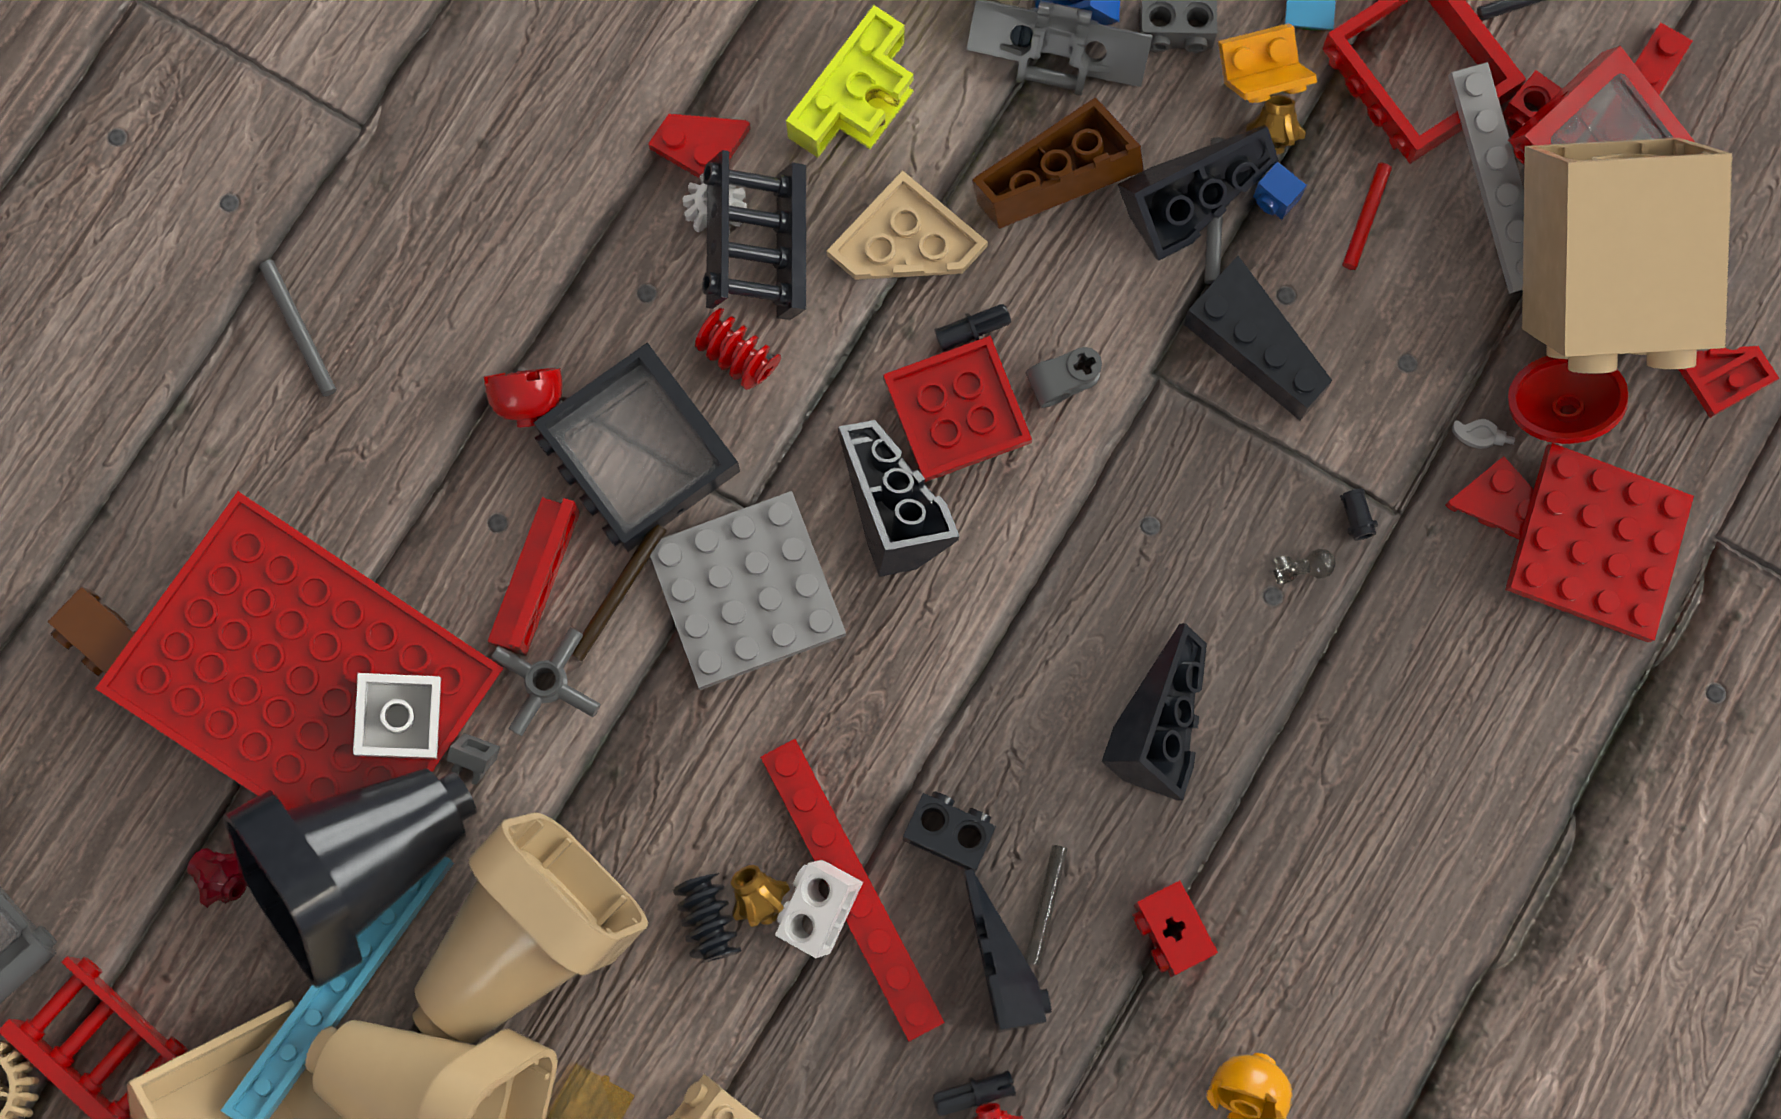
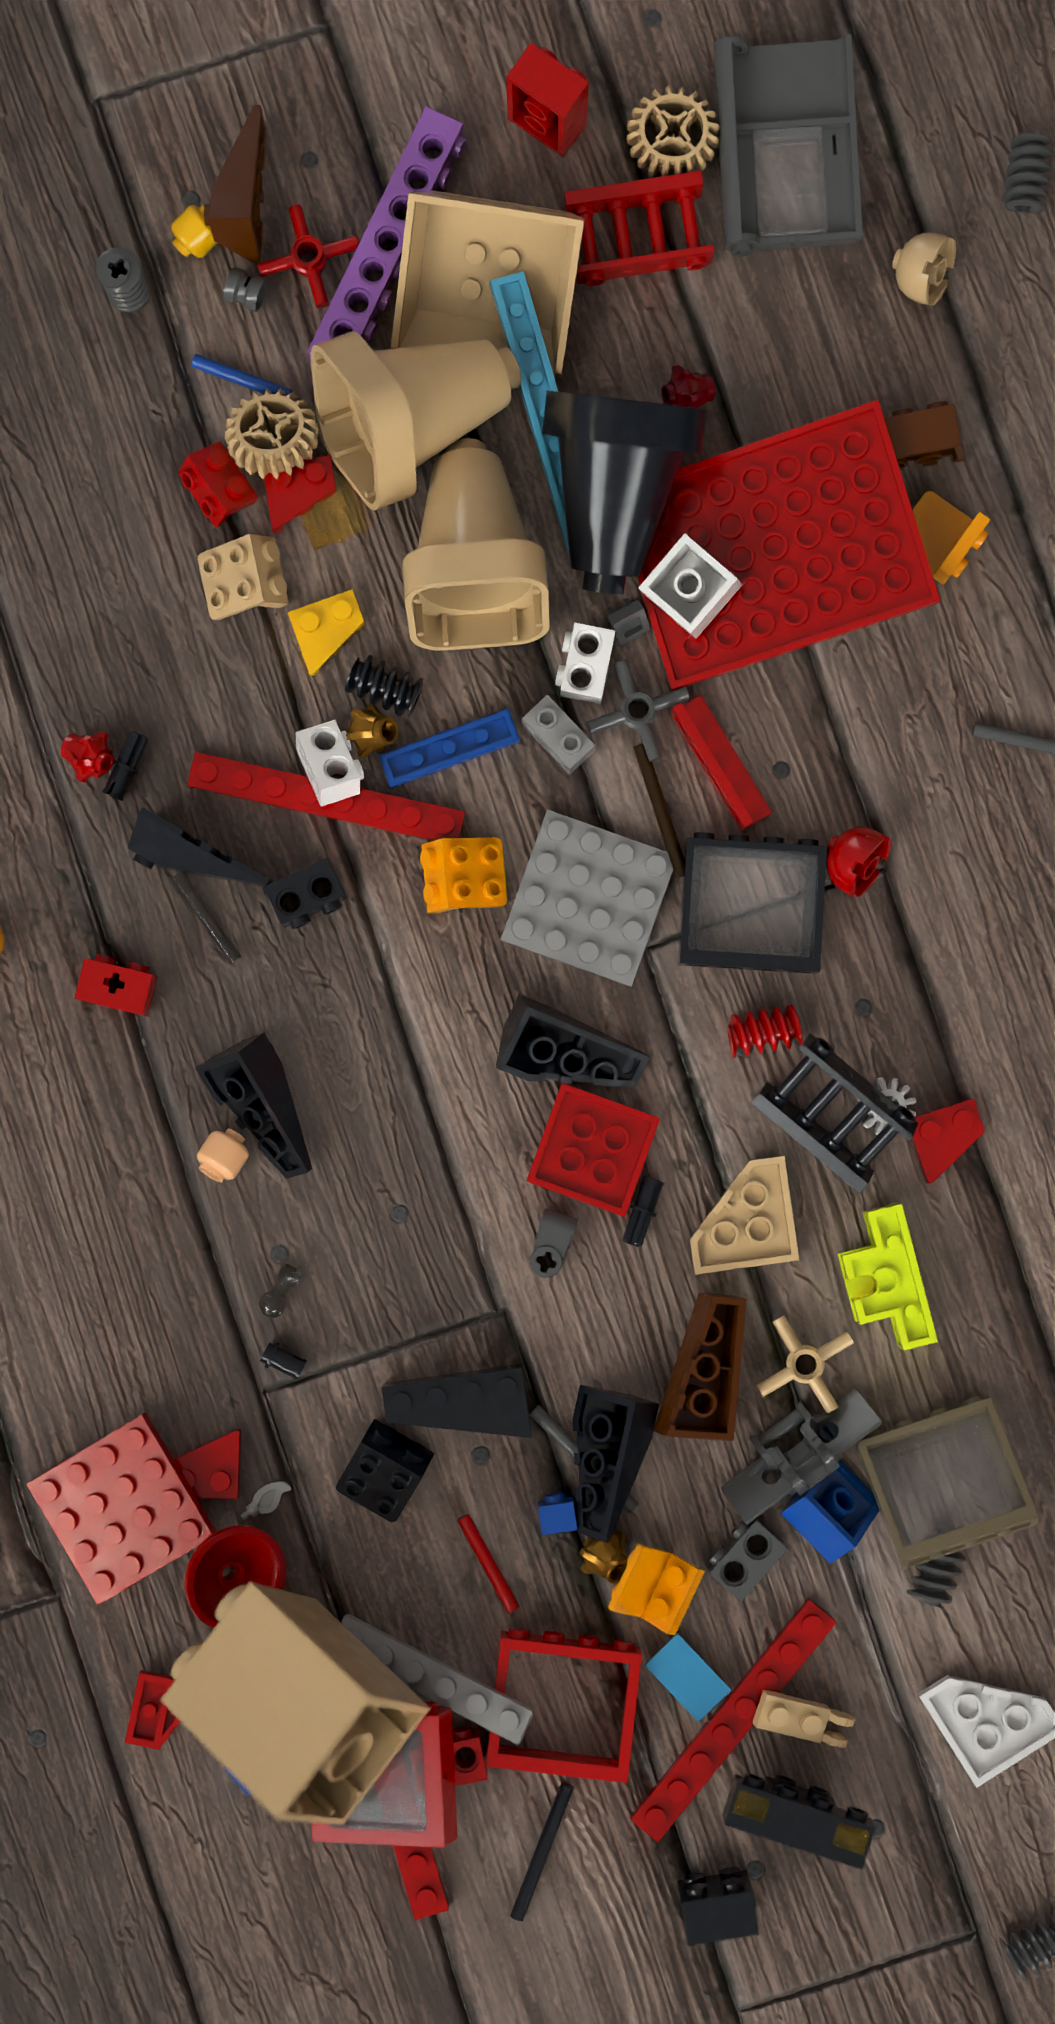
camera: 135 degrees right, 10 degrees up
(169, 541) = (947, 535): none -> light orange bracket
(536, 750) = (592, 664): none -> white brick
(624, 730) = (558, 734): none -> light grey brick
(698, 1021) = (325, 627): none -> yellow wing
(715, 819) = (449, 748): none -> blue tile
(817, 711) = (463, 873): none -> light orange bracket
(982, 85) = (814, 1377): none -> tan bar
(1235, 710) = (222, 1155): none -> light nougat head
(1369, 355) = (384, 1471): none -> black bracket

